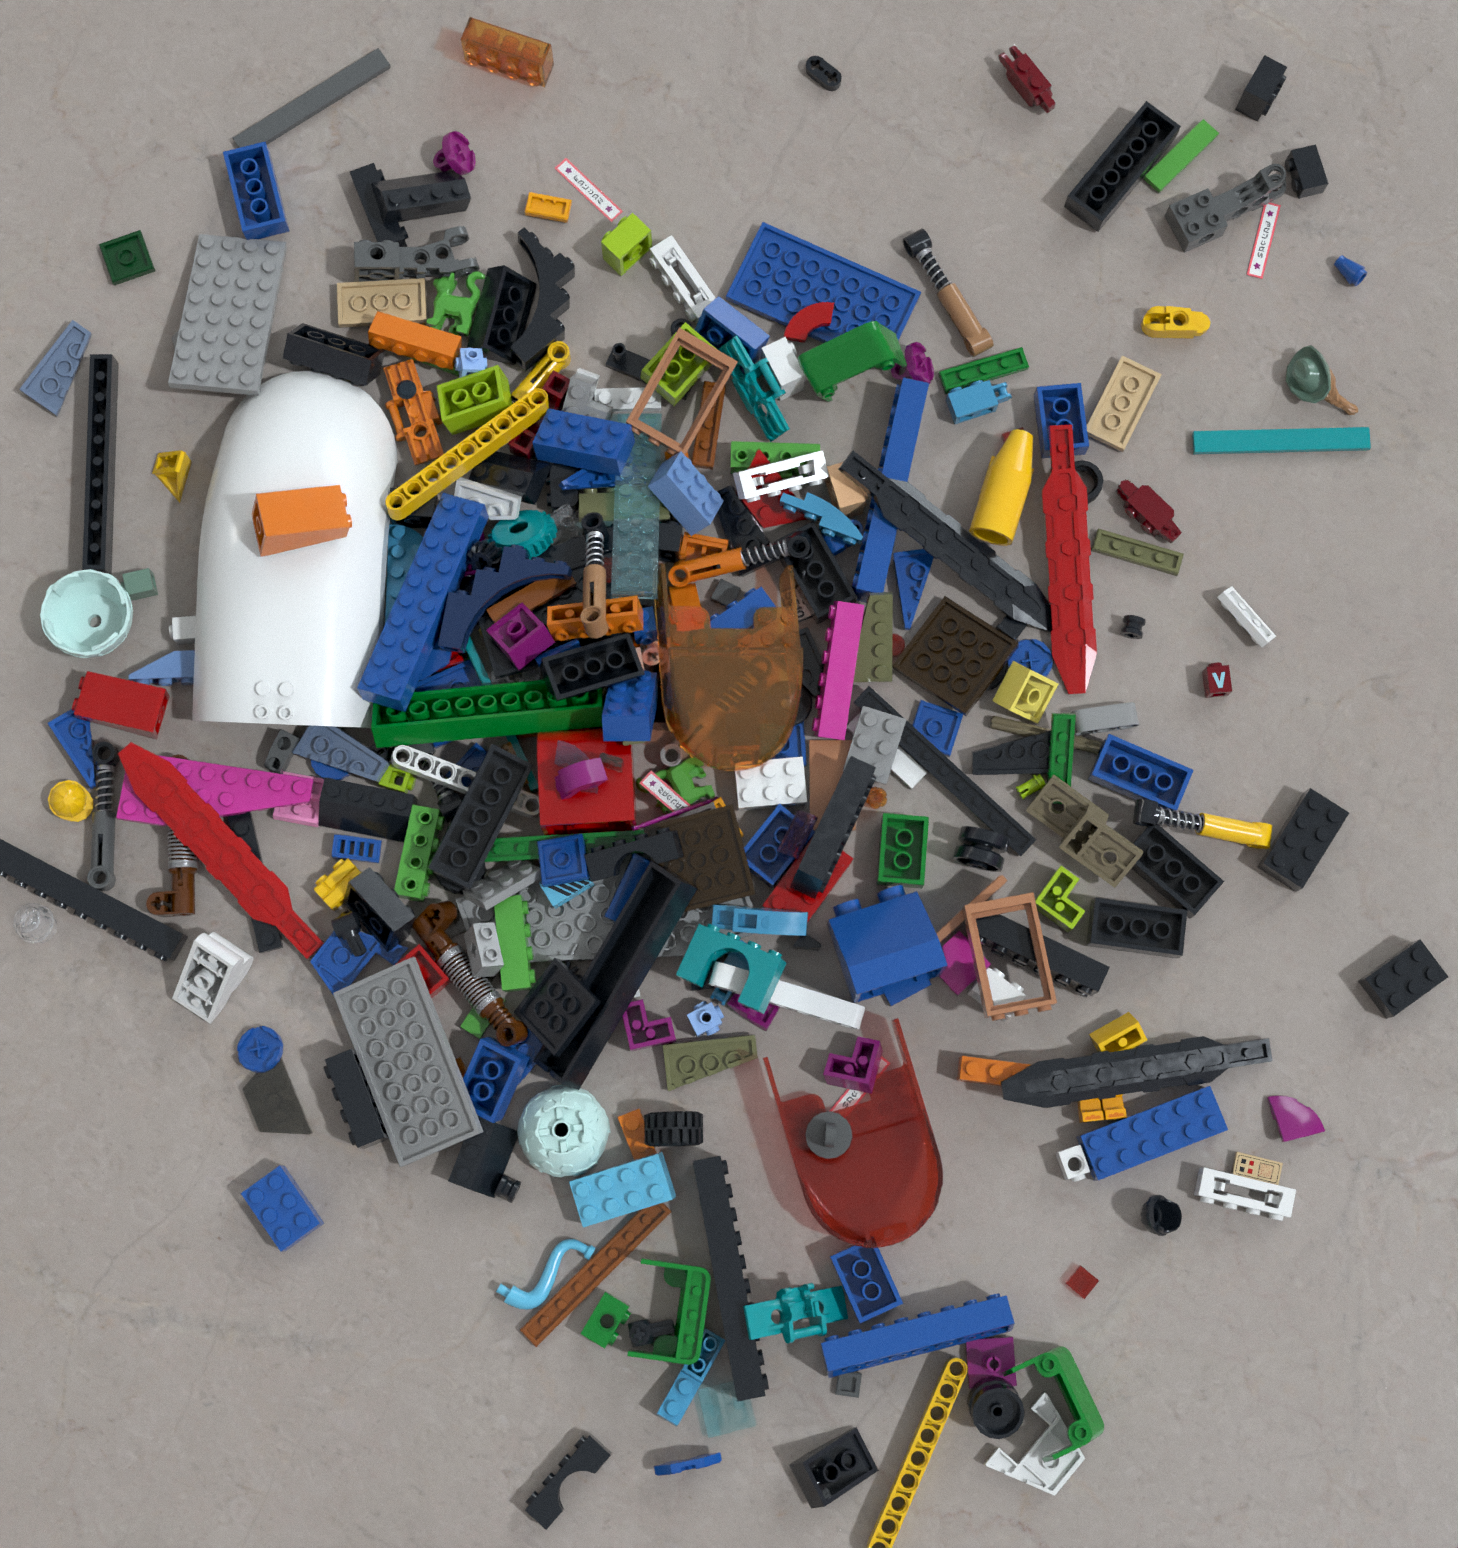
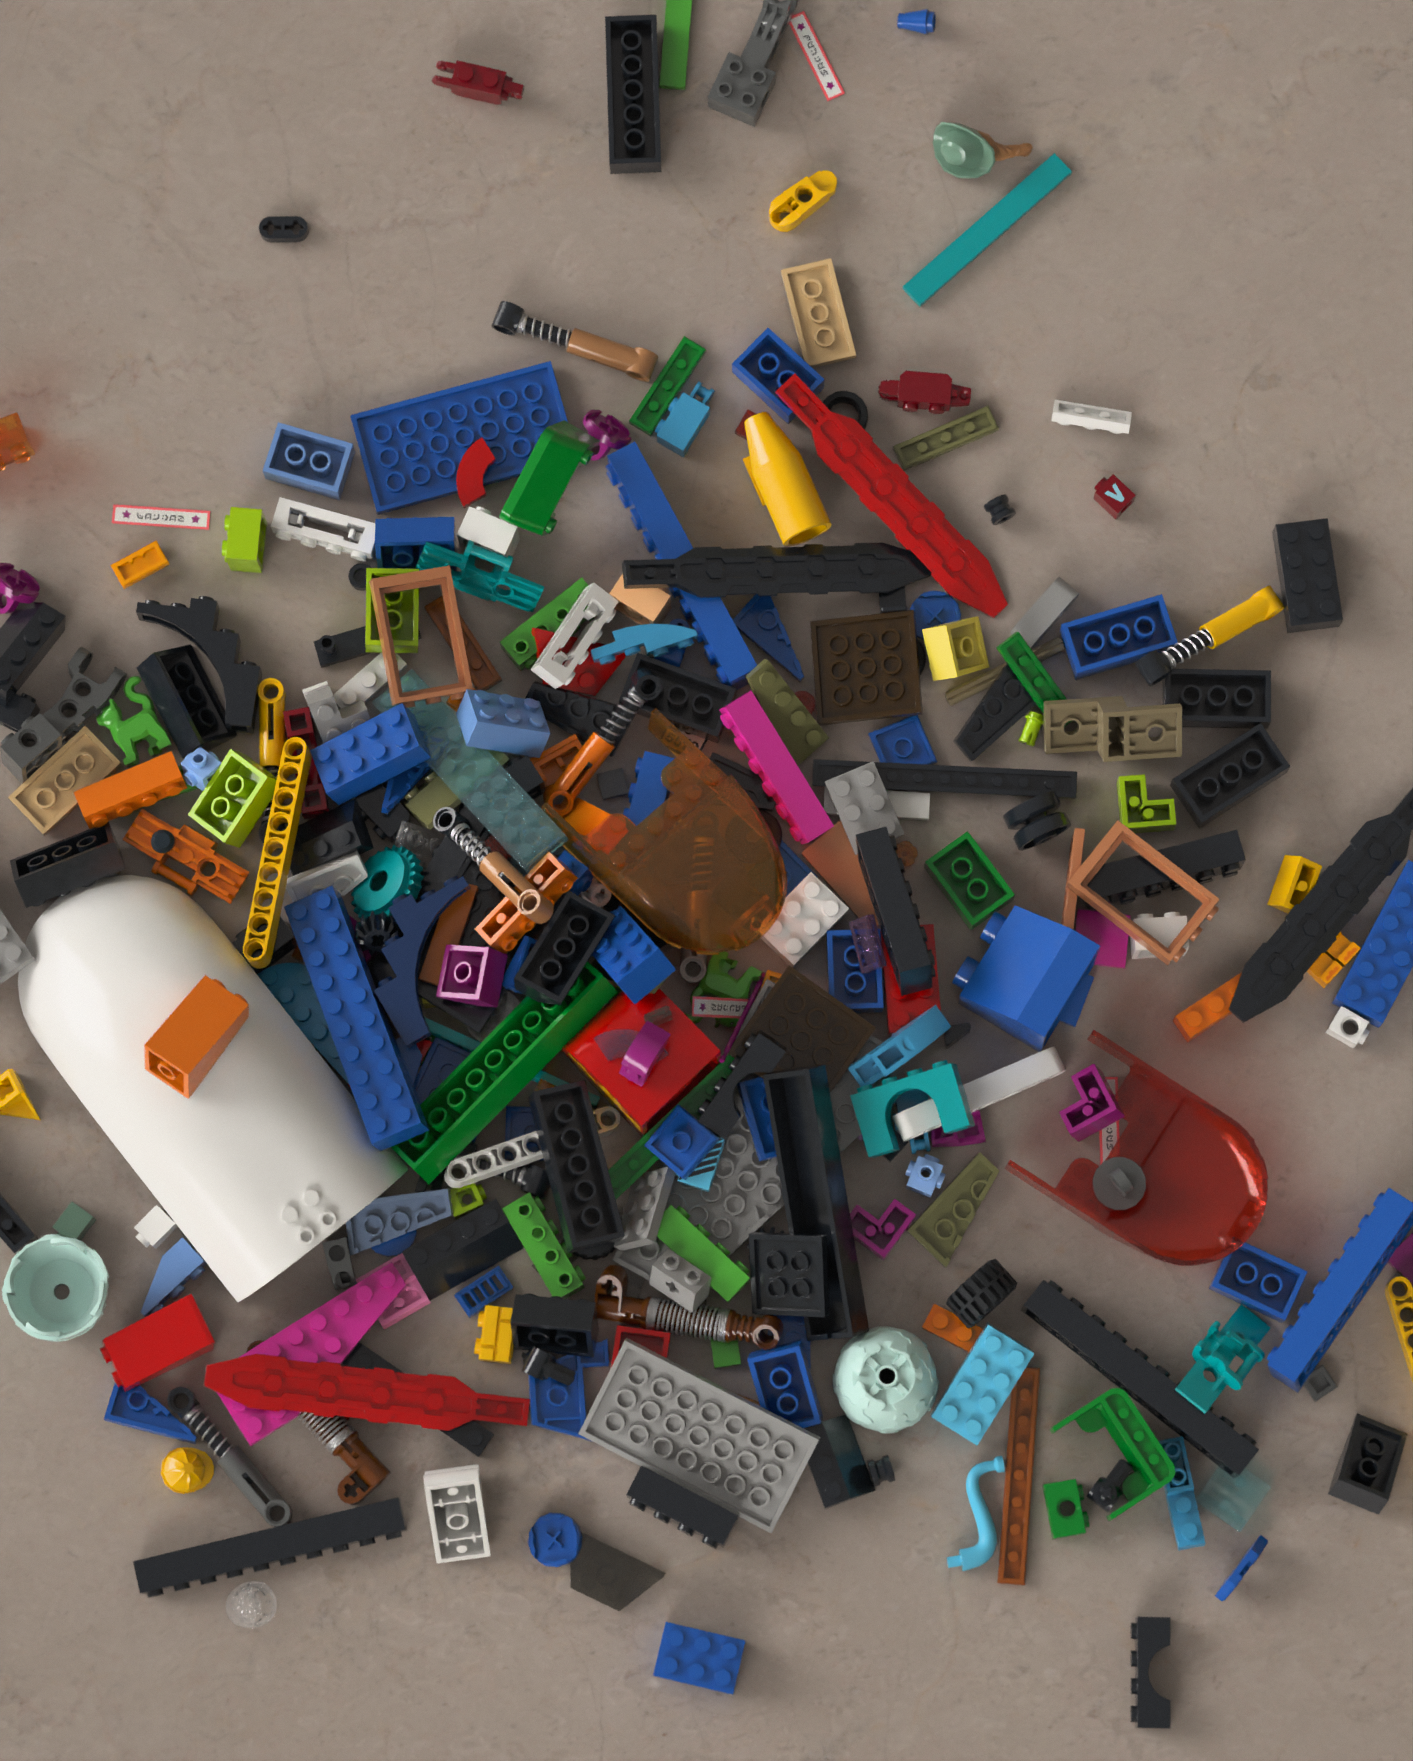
camera: 35 degrees left, 0 degrees up
(710, 228) = (309, 461): none -> medium blue brick

